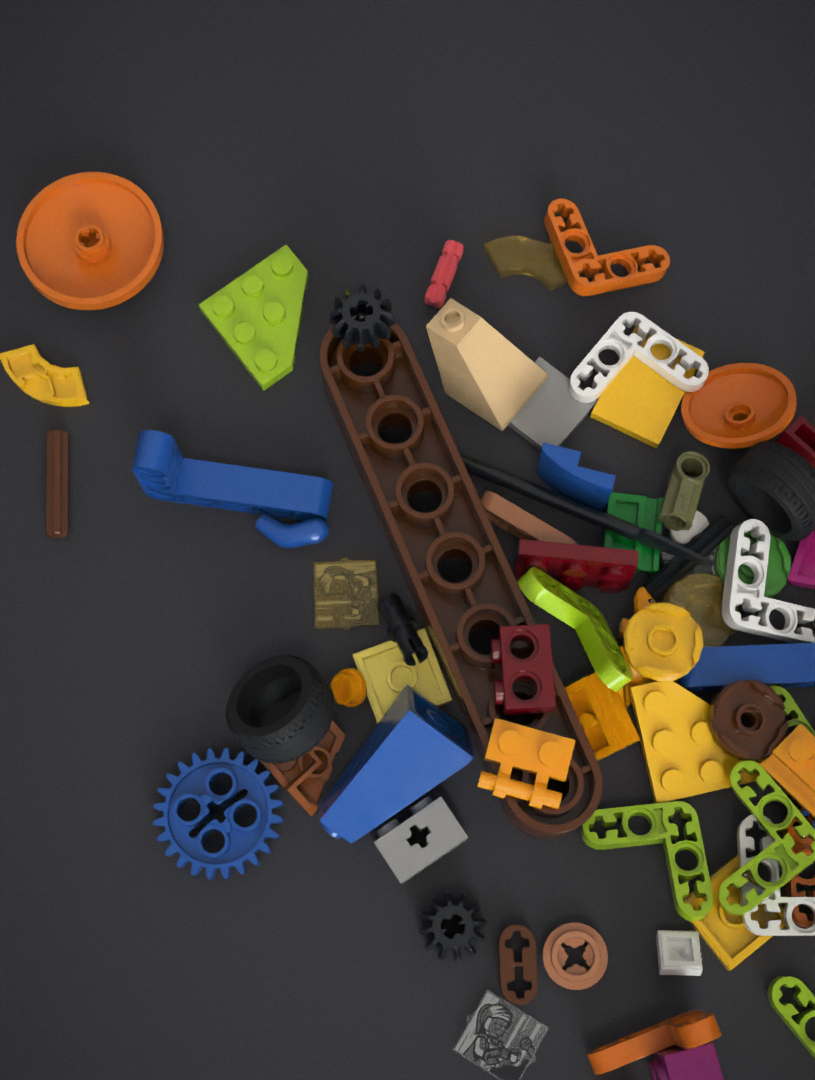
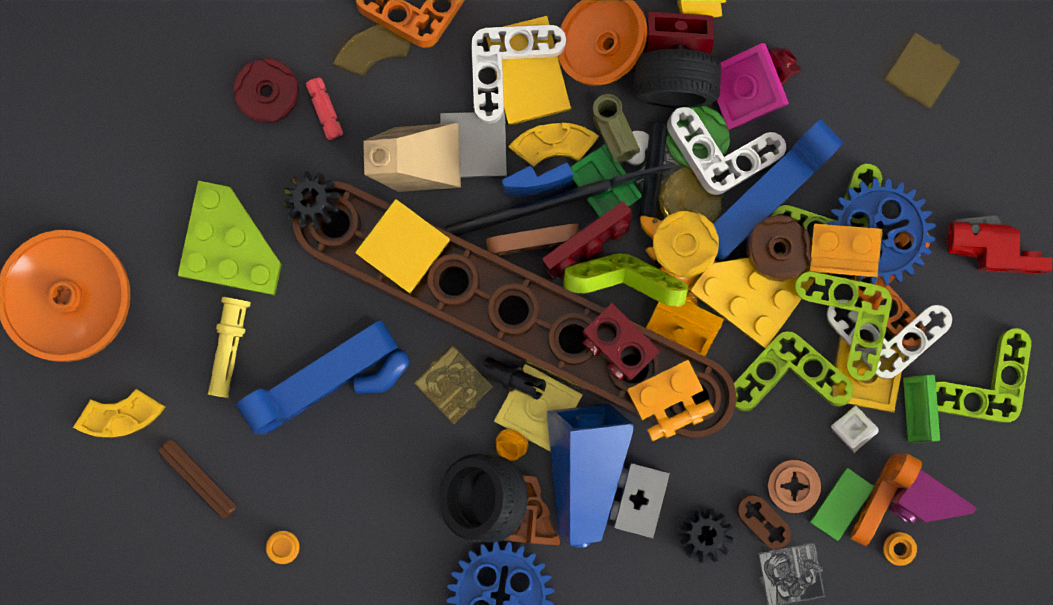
camera: 40 degrees left, 10 degrees up
(72, 603) = (282, 547): none -> light orange plate
(199, 384) = (229, 332): none -> light yellow pin
(405, 424) = (402, 246): none -> yellow tile
(408, 204) = (256, 77): none -> dark red plate
(606, 1014) = (841, 504): none -> bright green tile
(613, 456) = (553, 140): none -> yellow tile
(760, 990) = (921, 409): none -> bright green tile

